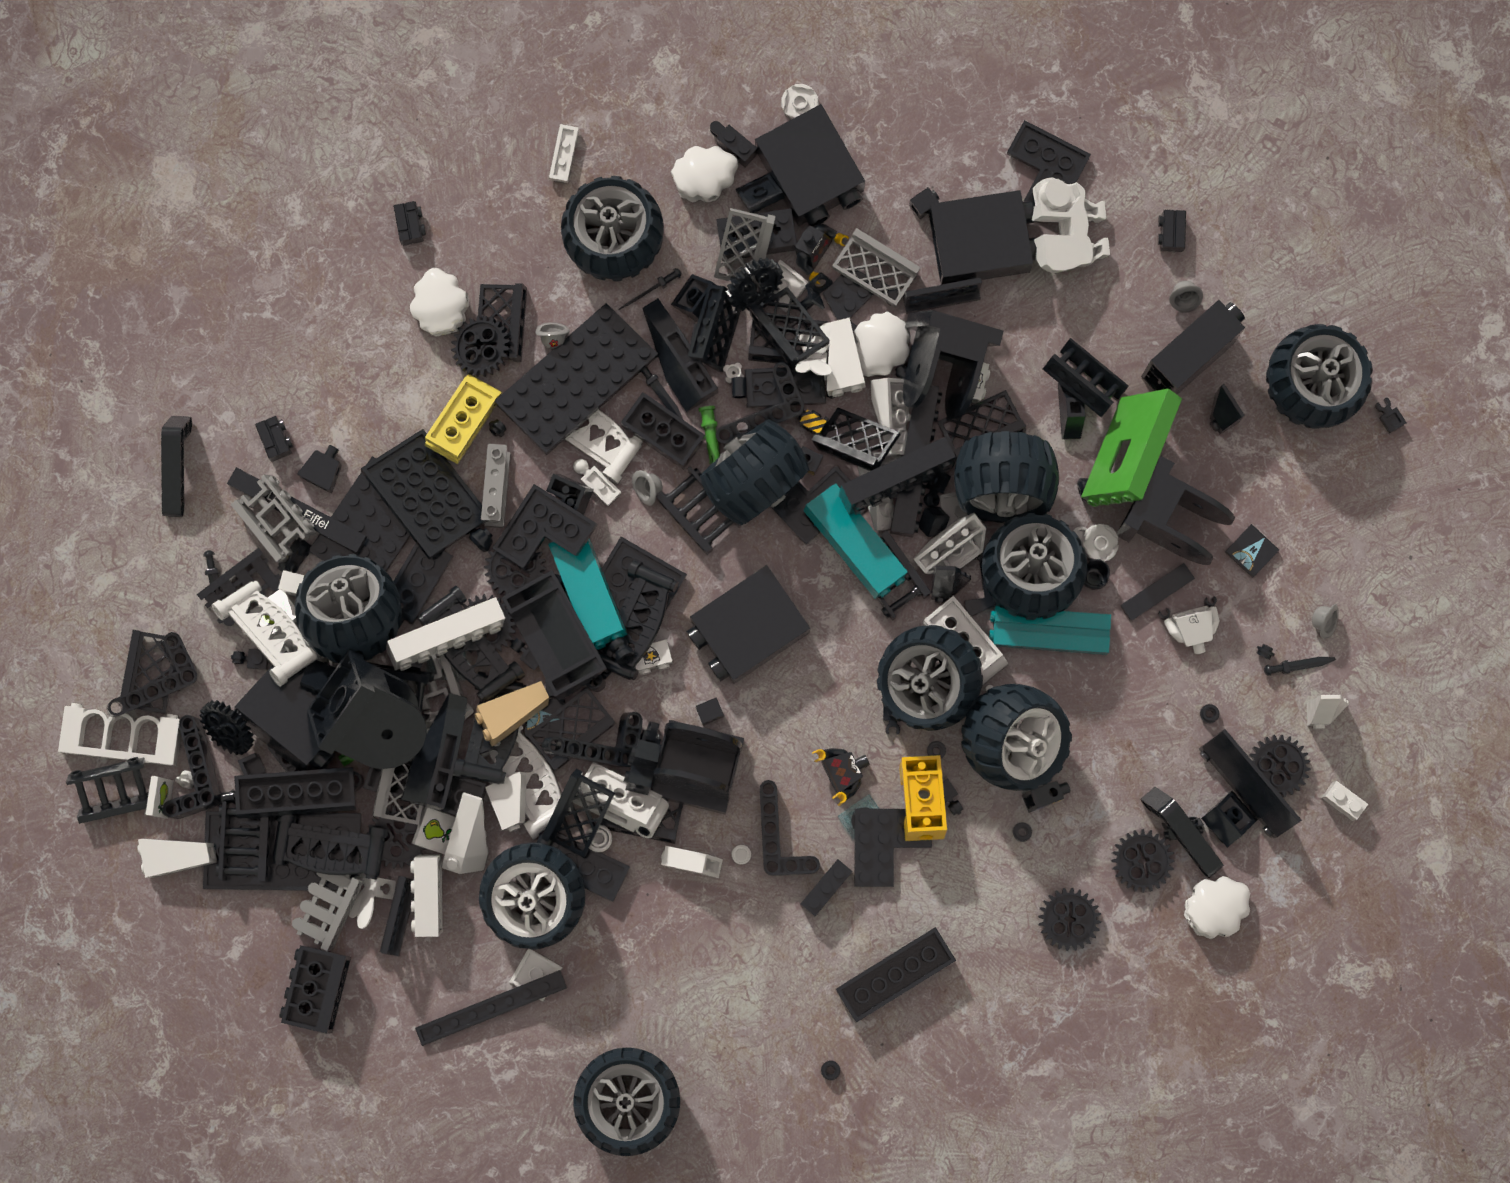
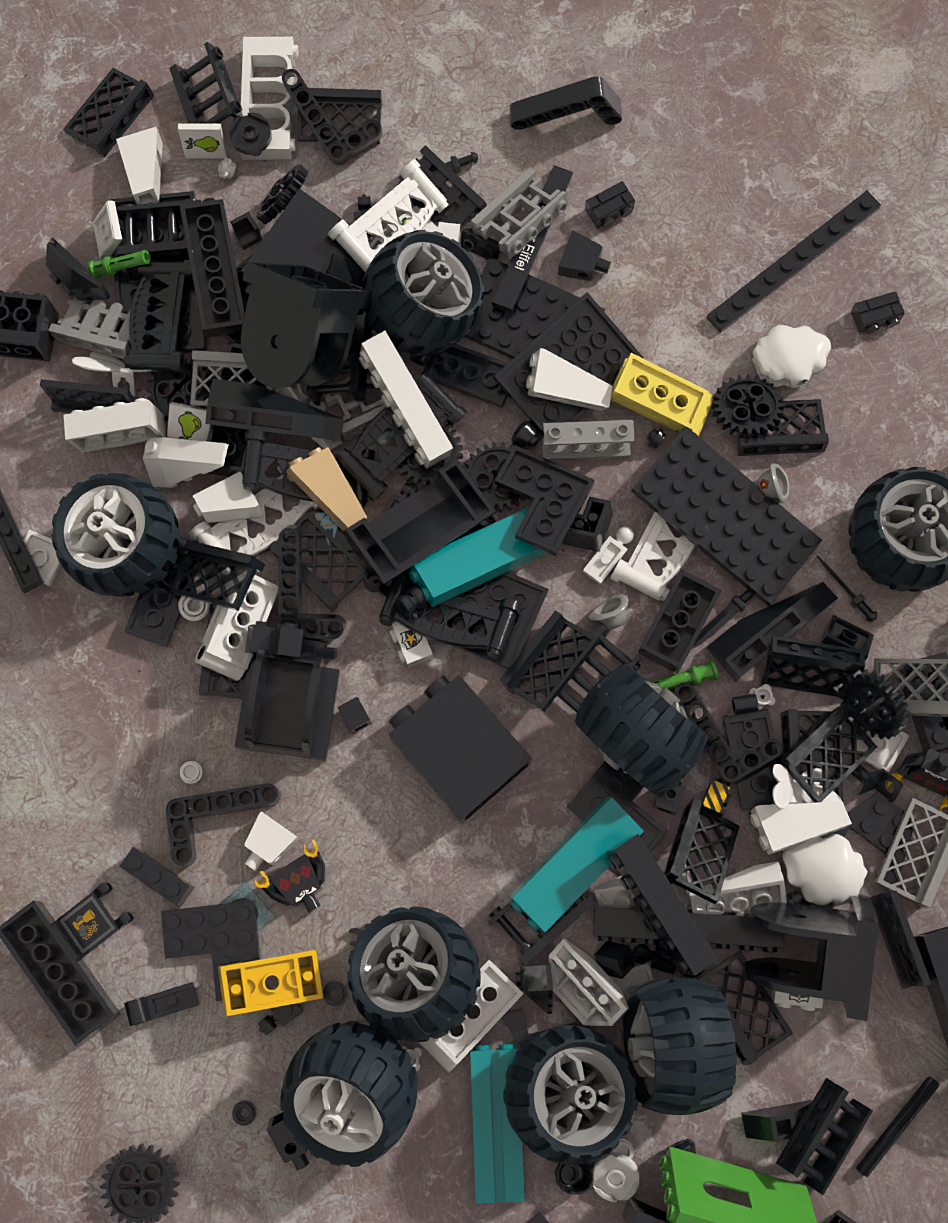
camera: 85 degrees right, 5 degrees down
(116, 871) = (120, 118): none -> black fence
(161, 740) = (250, 145): none -> black plate
(197, 772) = (235, 179): black beam -> none
(236, 891) = (107, 230): none -> white tile
(272, 889) = (111, 265): none -> bright green pin
(275, 926) = (72, 274): none -> black wedge
(349, 286) = (793, 261): none -> black plate
(442, 498) = (566, 383): none -> white slope
(676, 555) = (536, 653): none -> black fence
(691, 861) = (176, 715): white slope -> none
(807, 793) = (268, 841): none -> white torso
(857, 949) = (90, 922): none -> black flag
(929, 892) = (161, 1004): none -> black plate
(1084, 320) = (897, 1126): none -> black axle

